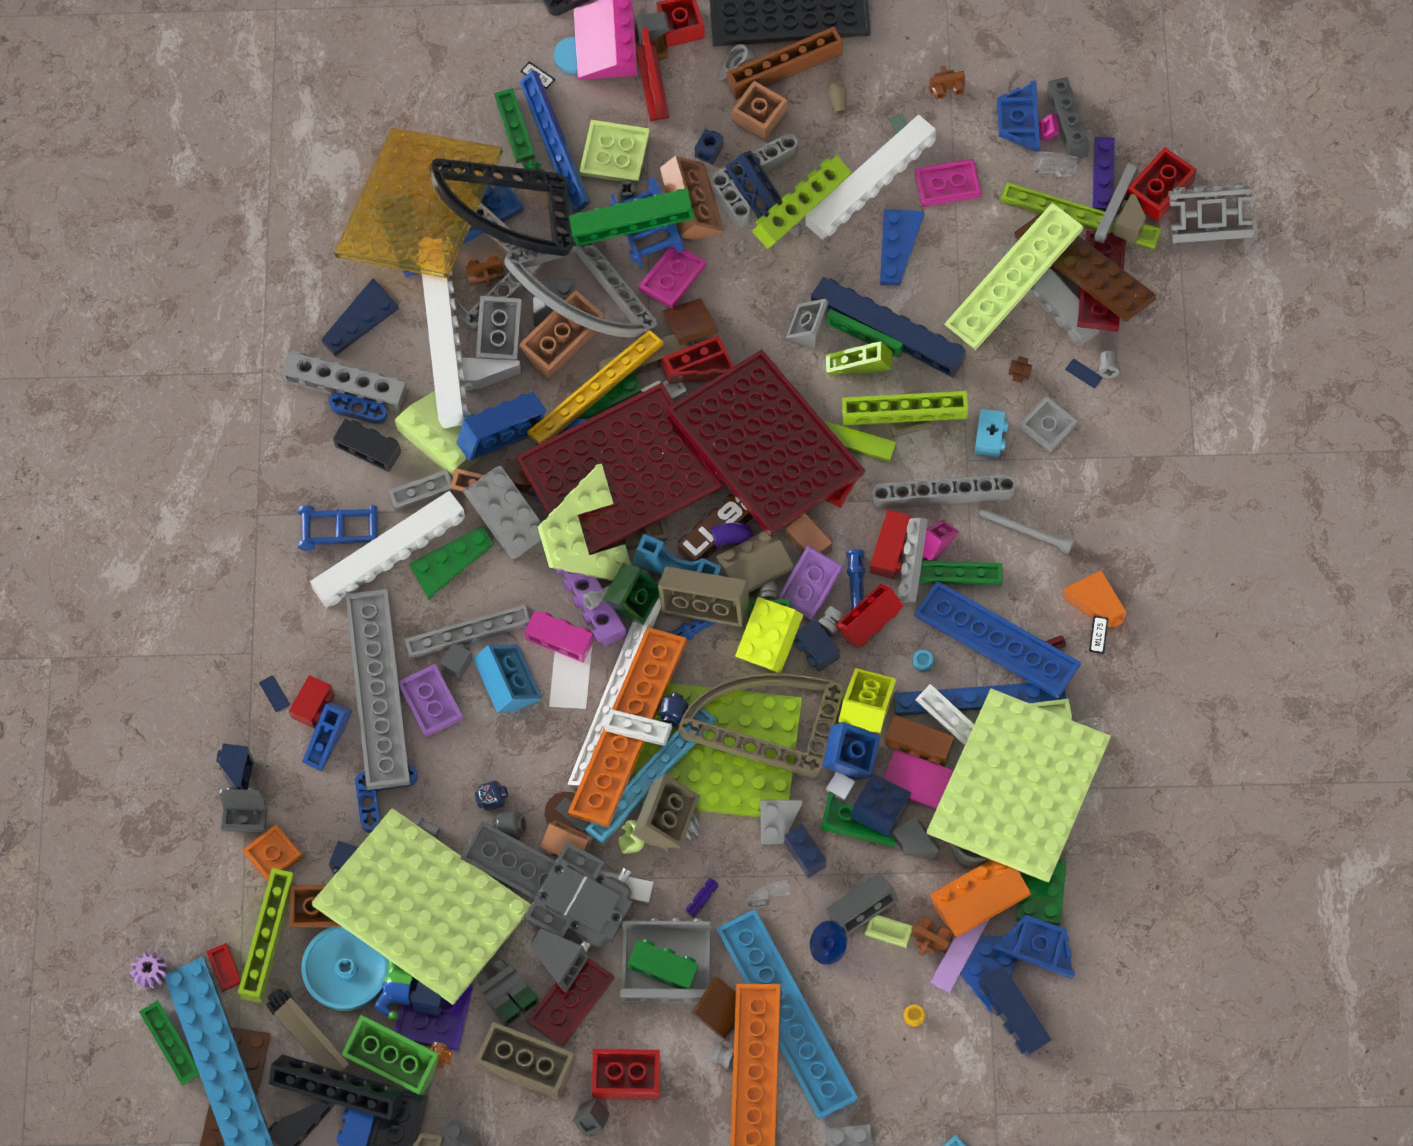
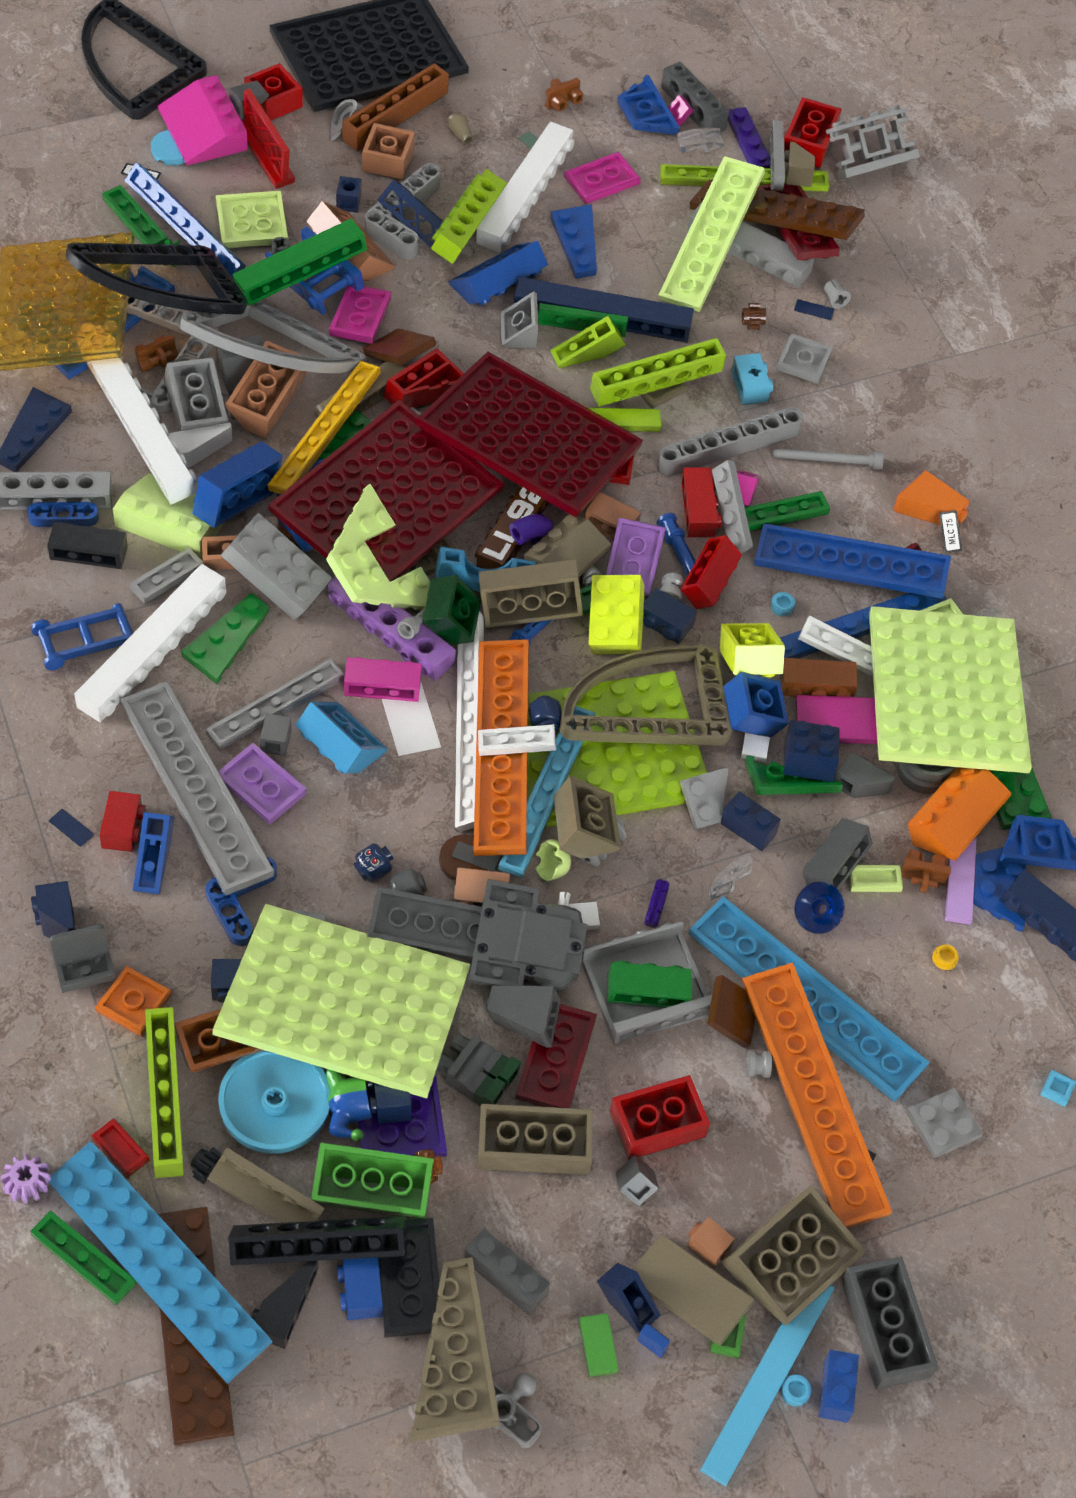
camera: 30 degrees left, 10 degrees down
(810, 264) = (500, 272): none -> blue slope

